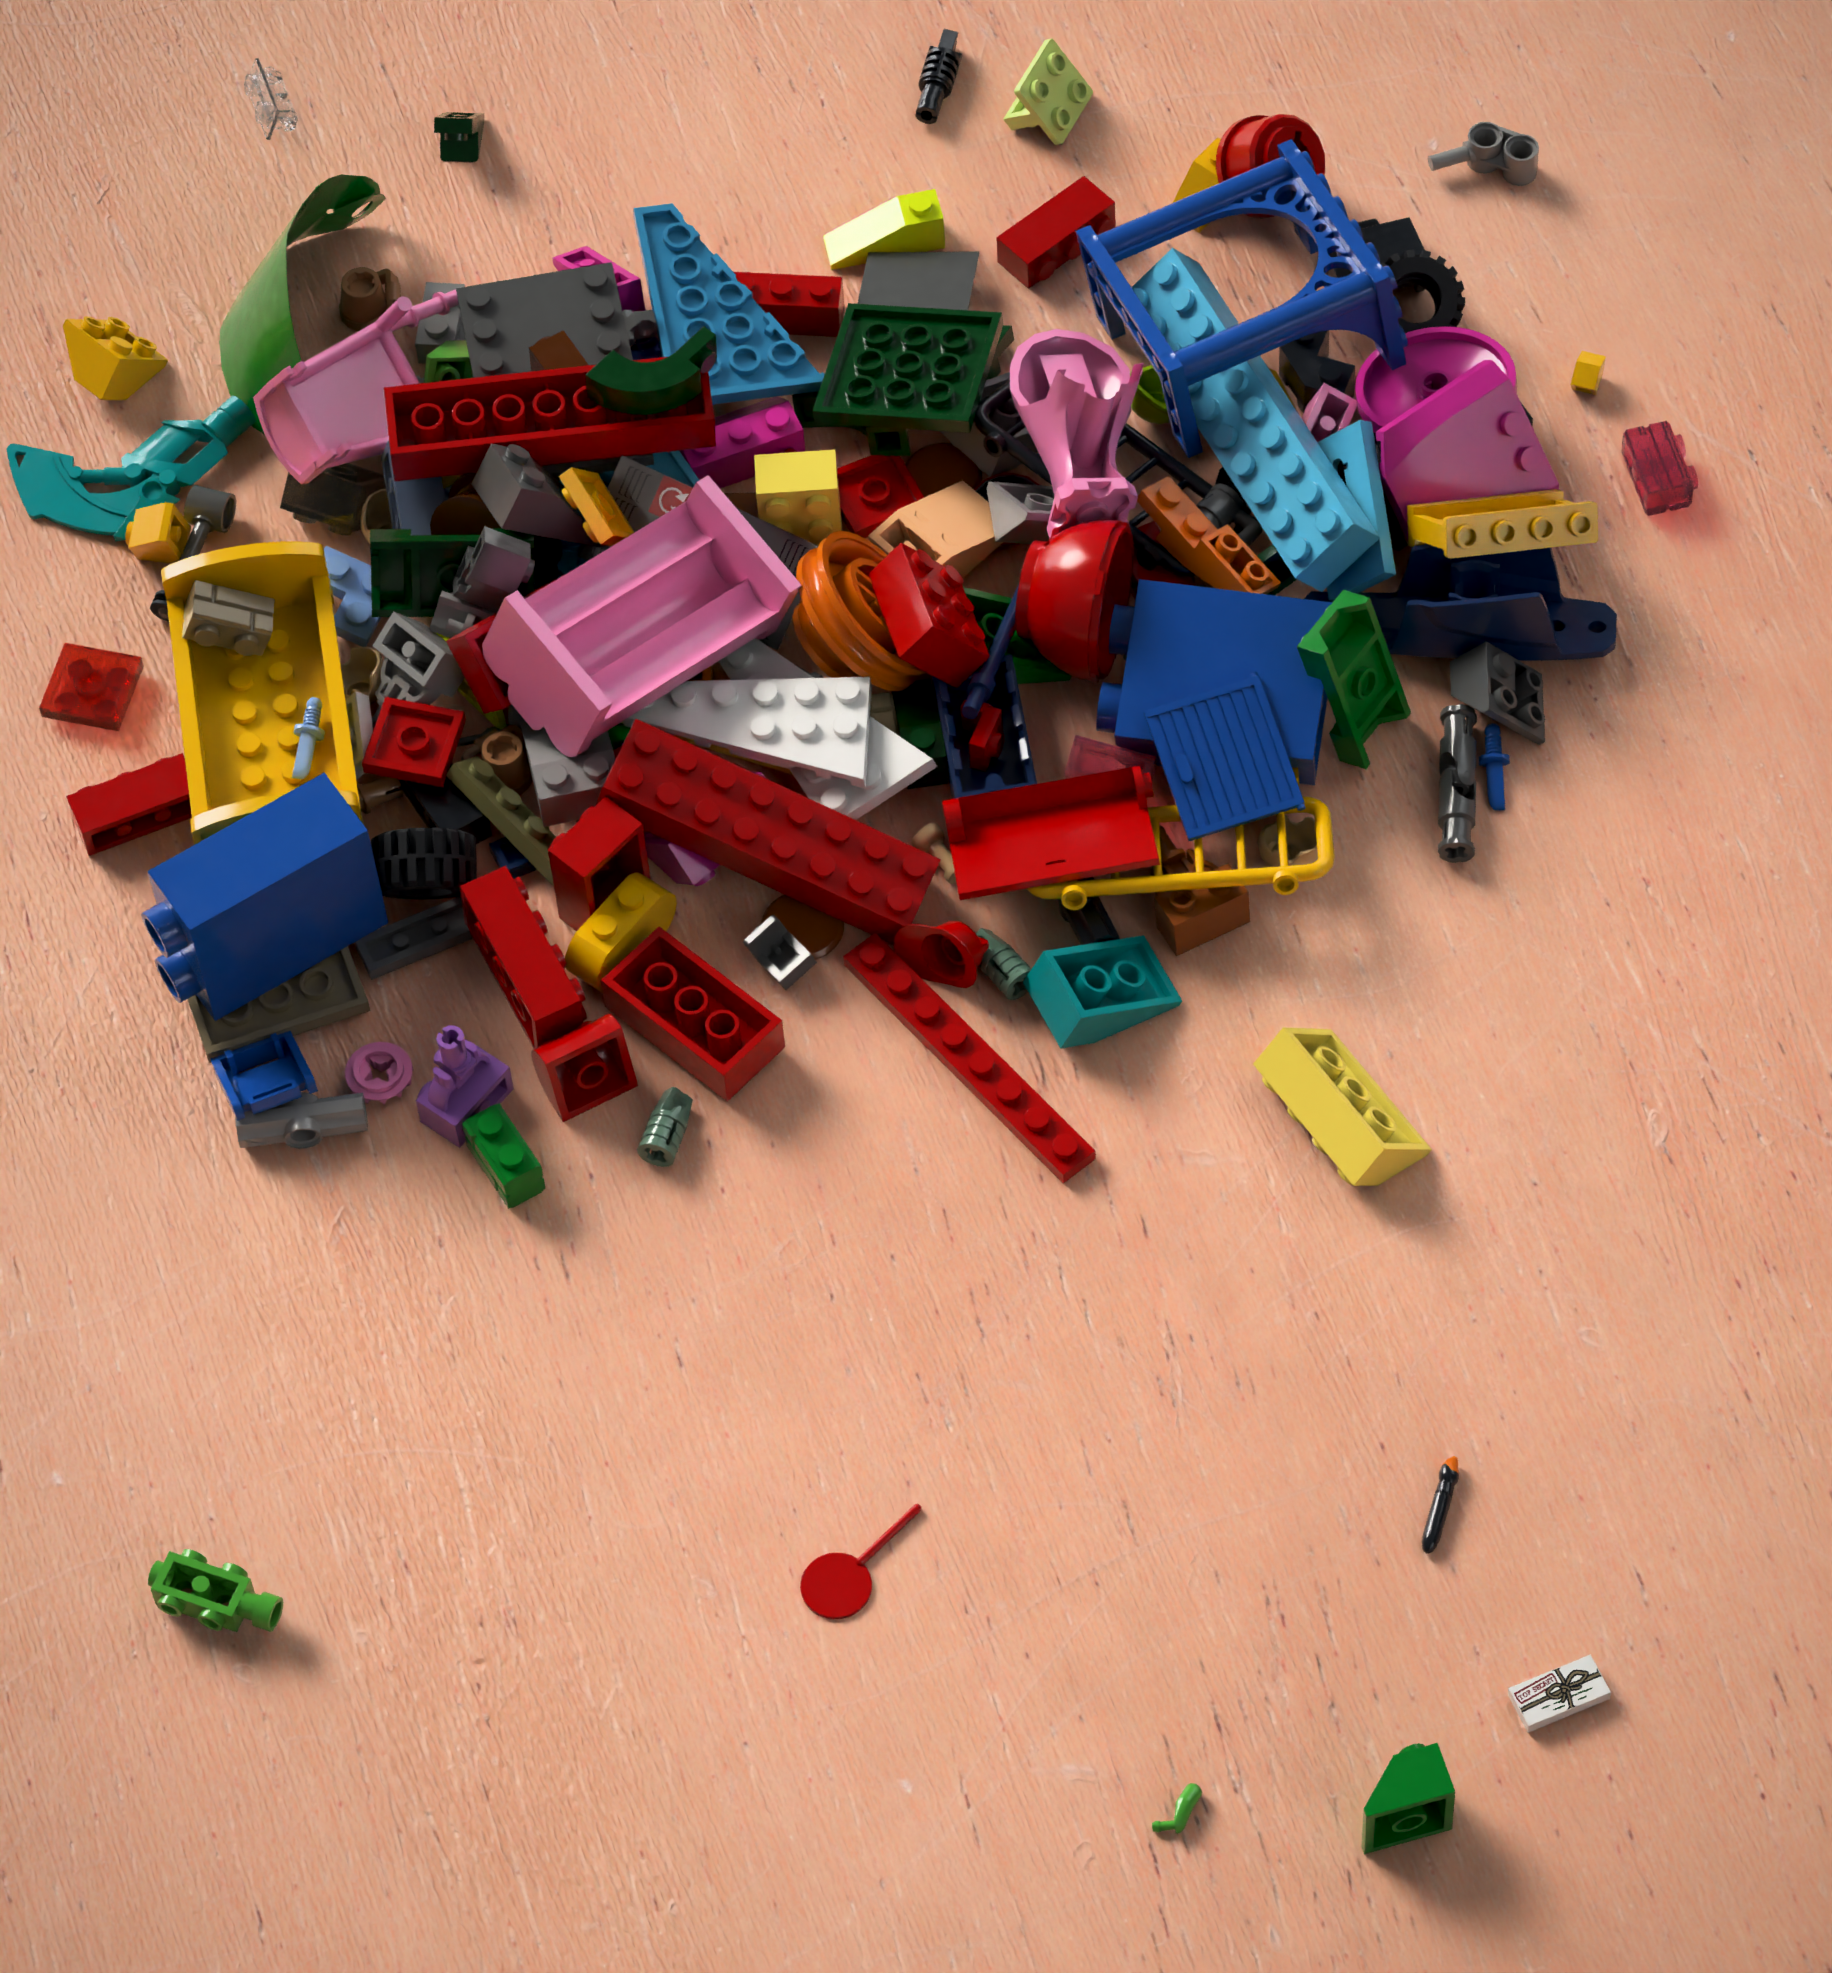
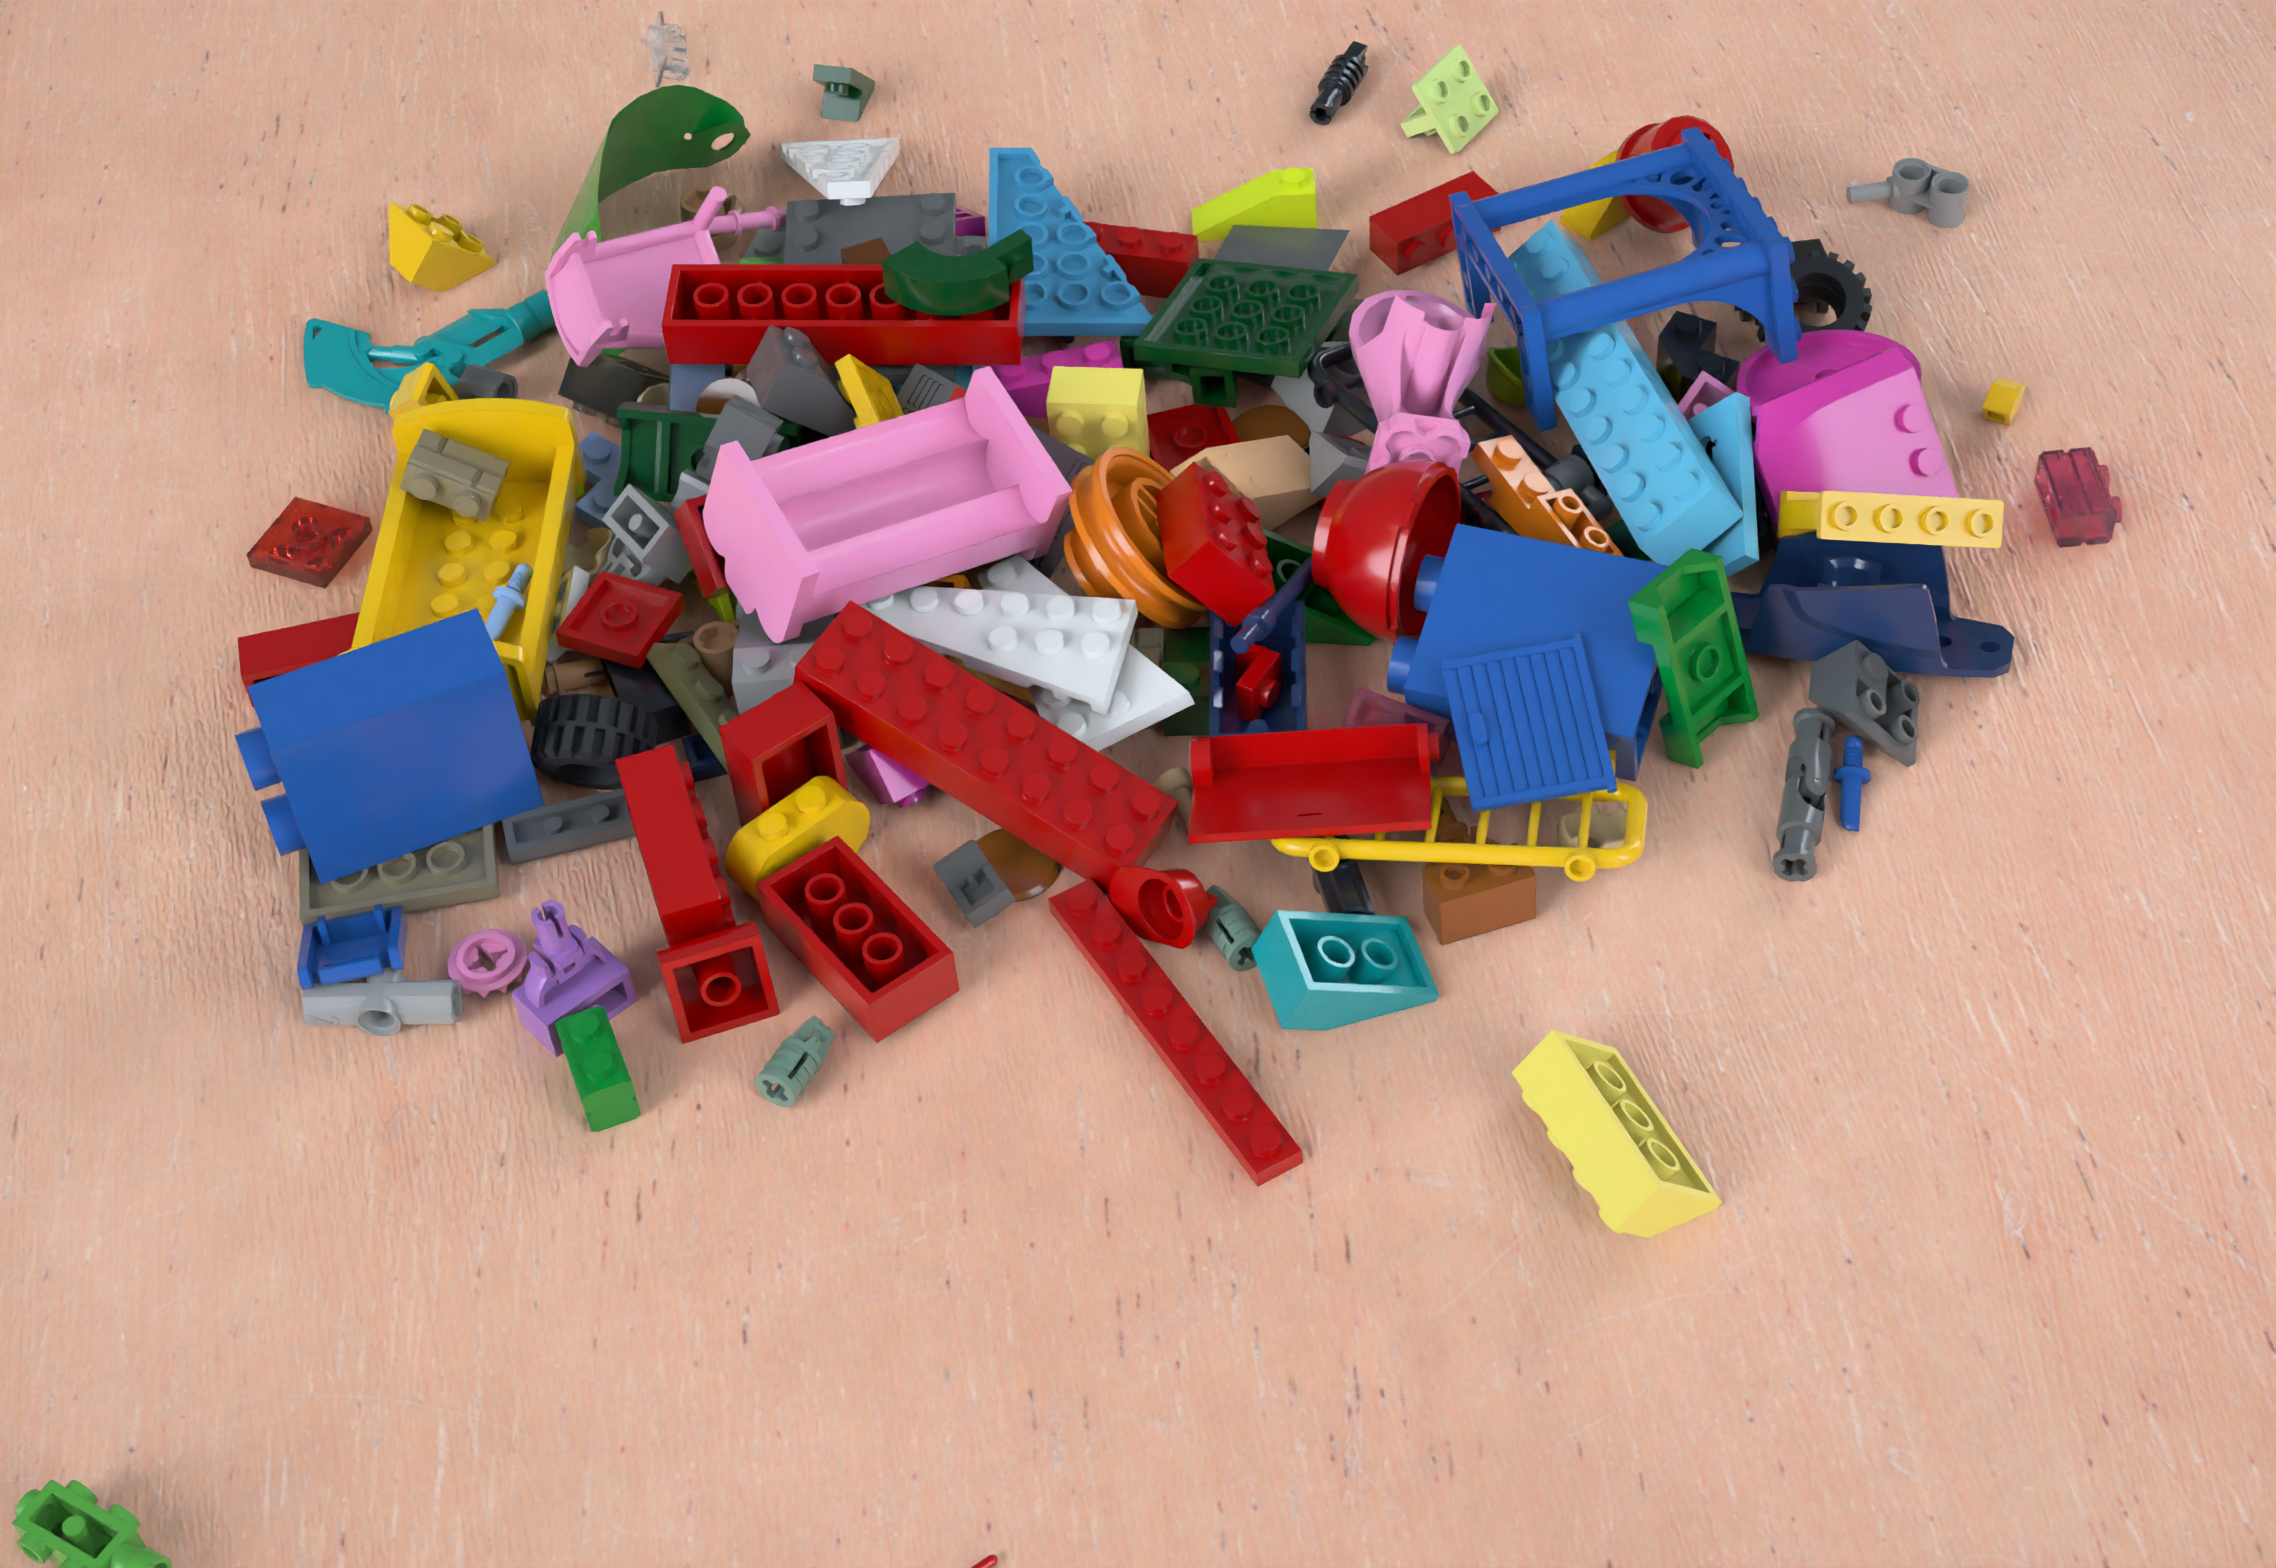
camera: 10 degrees right, 10 degrees down
(489, 230) = (842, 168): none -> white wing

